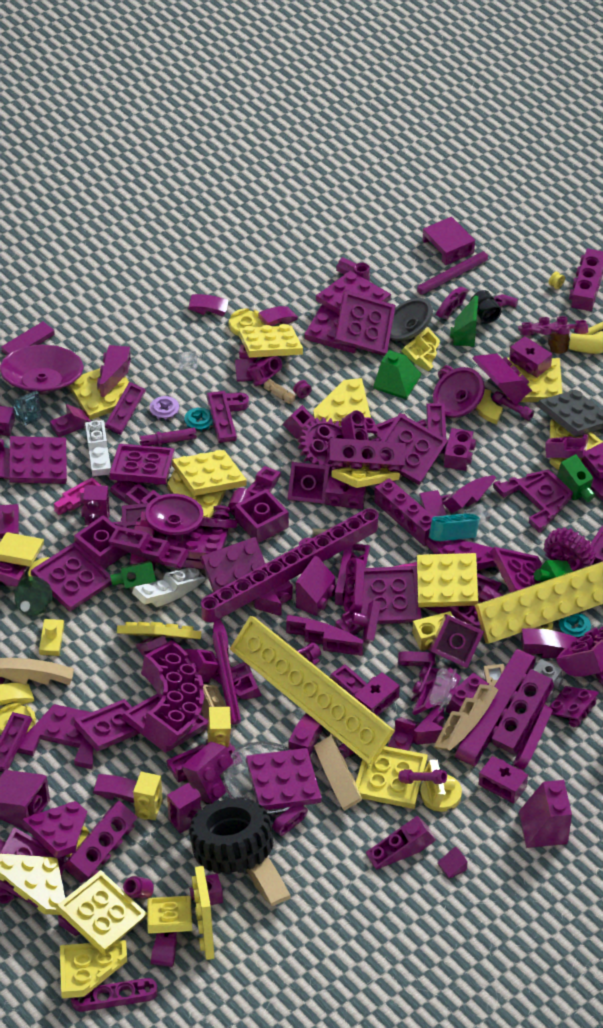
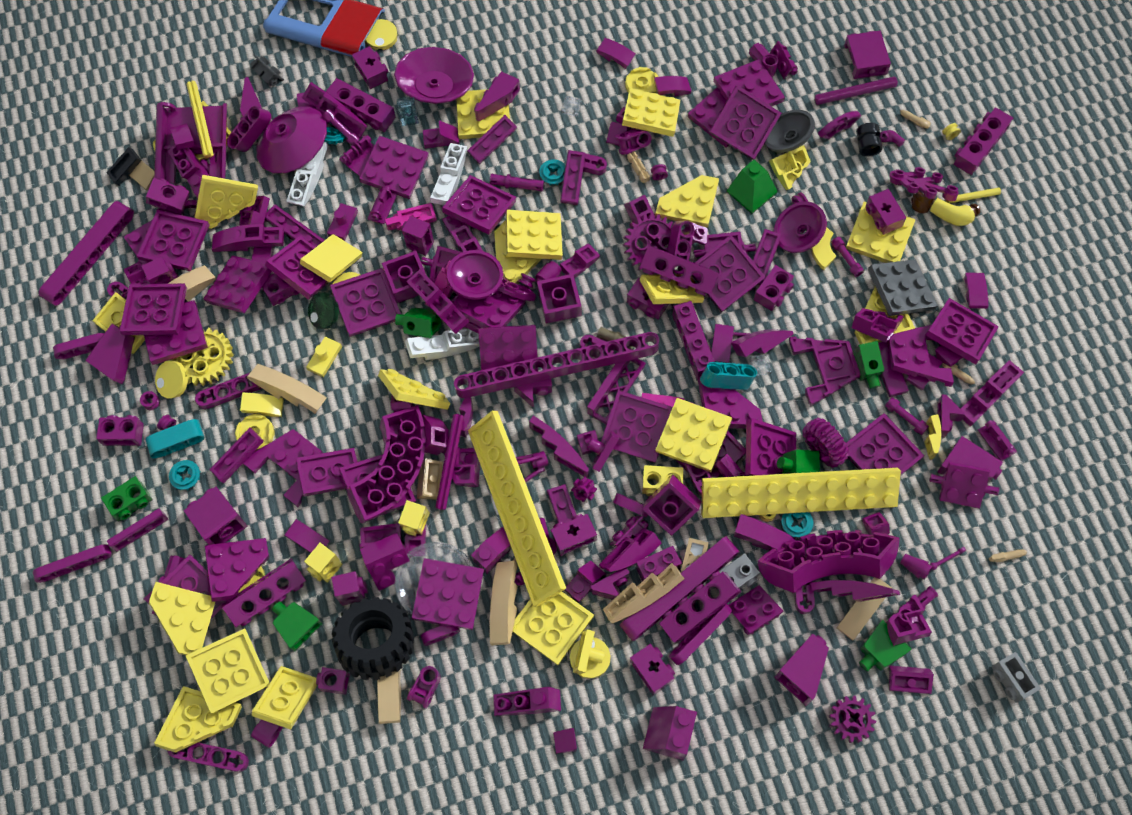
camera: 25 degrees right, 20 degrees up
(31, 337) = (444, 37): magenta tile -> none
(43, 494) = (382, 205): none -> magenta hinge
(138, 887) = (273, 655): magenta brick -> none
(144, 857) = (294, 624): none -> green torso
(164, 402) = (533, 144): lavender gear -> none
(203, 912) = (312, 704): light yellow plate -> none
(298, 866) = (424, 688): none -> magenta piece
(308, 482) = (617, 276): magenta slope -> none
(314, 587) = (572, 394): magenta slope -> none
(354, 594) = (607, 406): magenta beam -> none
(368, 665) = (584, 489): none -> magenta gear
(377, 270) = (784, 65): none -> magenta hinge
(408, 776) = (581, 652): magenta bar -> none
(446, 682) = (629, 562): clear hinge -> none
(465, 325) = (840, 154): green slope -> none
(504, 376) = (848, 225): magenta slope -> none
(521, 281) = (921, 122): none -> tan piece

